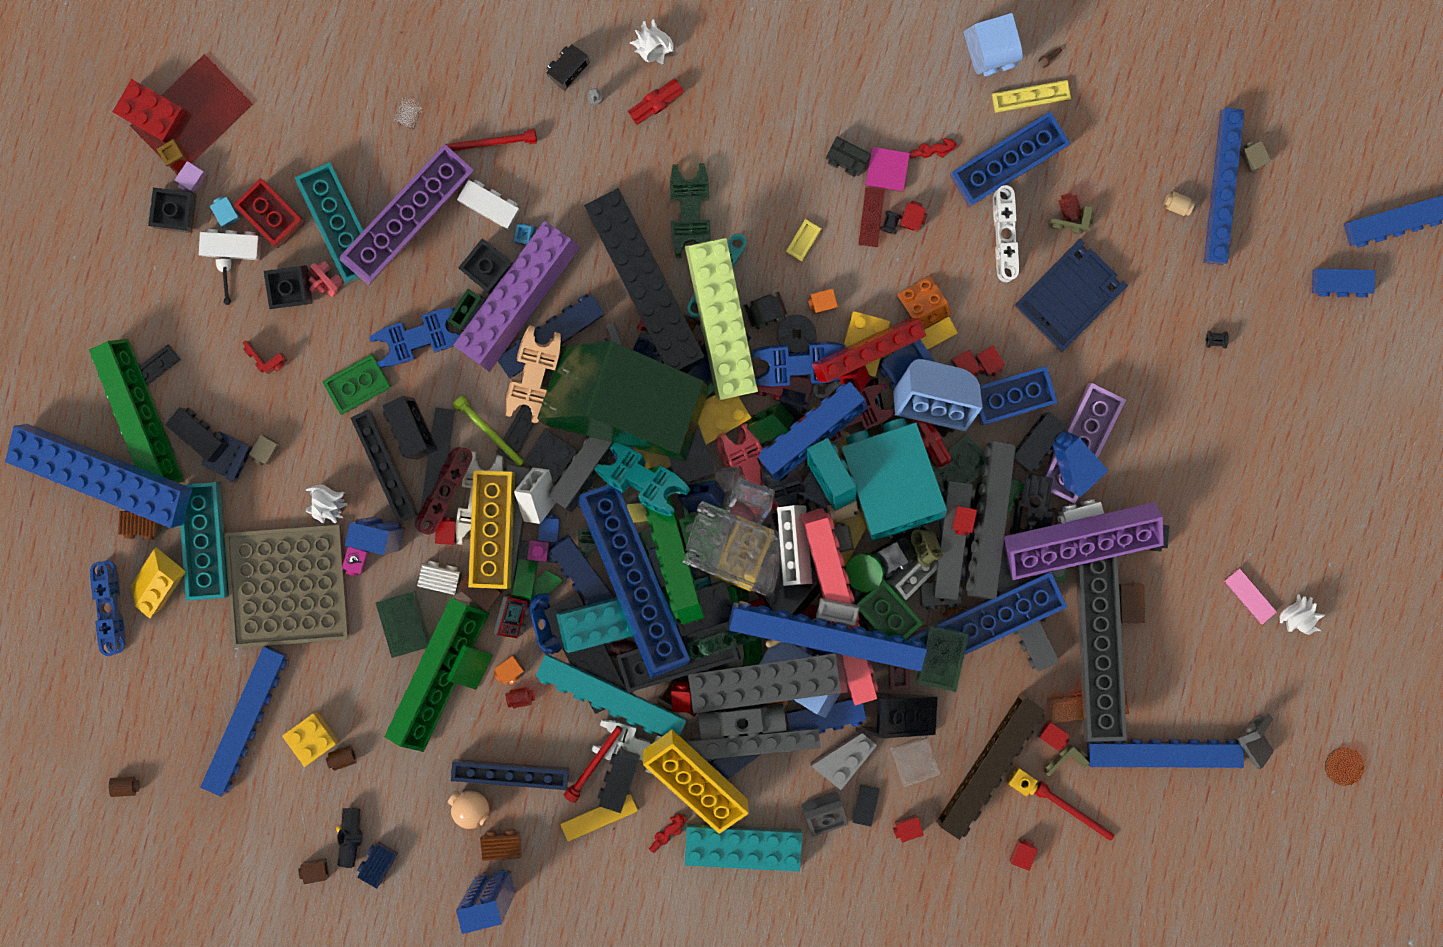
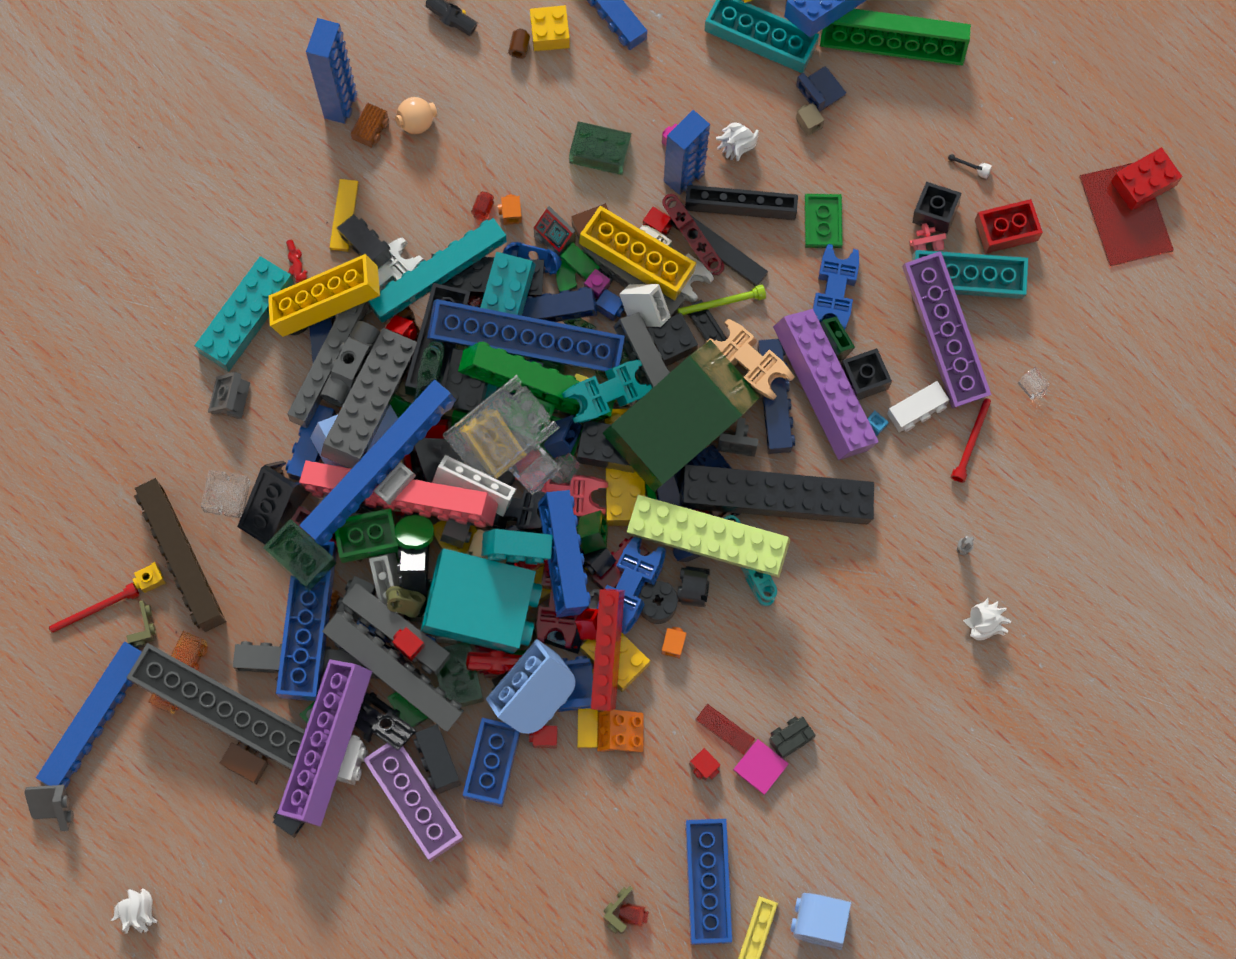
camera: 115 degrees right, 15 degrees down
(158, 364) = (928, 78): black tile -> none
(171, 152) = (1102, 177): pearl gold panel -> none
(172, 210) = (1052, 152): black brick -> none
(190, 177) = (1072, 182): lavender brick -> none
(197, 434) = (852, 73): black brick -> none
(225, 211) = (1029, 190): medium azure brick -> none
(230, 245) = (998, 182): white brick -> none
(275, 363) = (880, 155): red bracket -> none
(286, 586) = (685, 71): dark tan plate -> none
(377, 864) = (415, 25): dark blue brick -> none
(409, 428) = (762, 237): black brick -> none
(429, 685) = (542, 148): green brick -> none
(439, 578) = (622, 196): white brick -> none
(469, 667) = (532, 178): green tile -> none
(509, 774) = (423, 162): dark blue brick -> none
(568, 66) = (1003, 537): black slope -> none
(573, 793) = (377, 204): red piece -> none
(655, 101) = (932, 597): red piece -> none
(689, 201) = (822, 574): clear green piece -> none
(803, 240) = (738, 657): light yellow tile -> none
(845, 759) = (264, 434): light grey wedge -> none
(865, 805) = (214, 435): black tile -> none
(890, 222) = (710, 742): black bush -> none
(908, 828) = (171, 458): red brick -> none
(939, 148) = (752, 827): red animal -> none
(990, 362) = (534, 759): red brick -> none
(1009, 245) = (633, 829): white piece -> none
(1023, 854) = (86, 543): red brick -> none
(1053, 736) = (170, 627): red brick -> none
(1070, 295) = (552, 868): dark blue door -> none
(1077, 463) = (397, 777): blue slope -> none
(1250, 596) = (183, 877): bright pink tile -> none

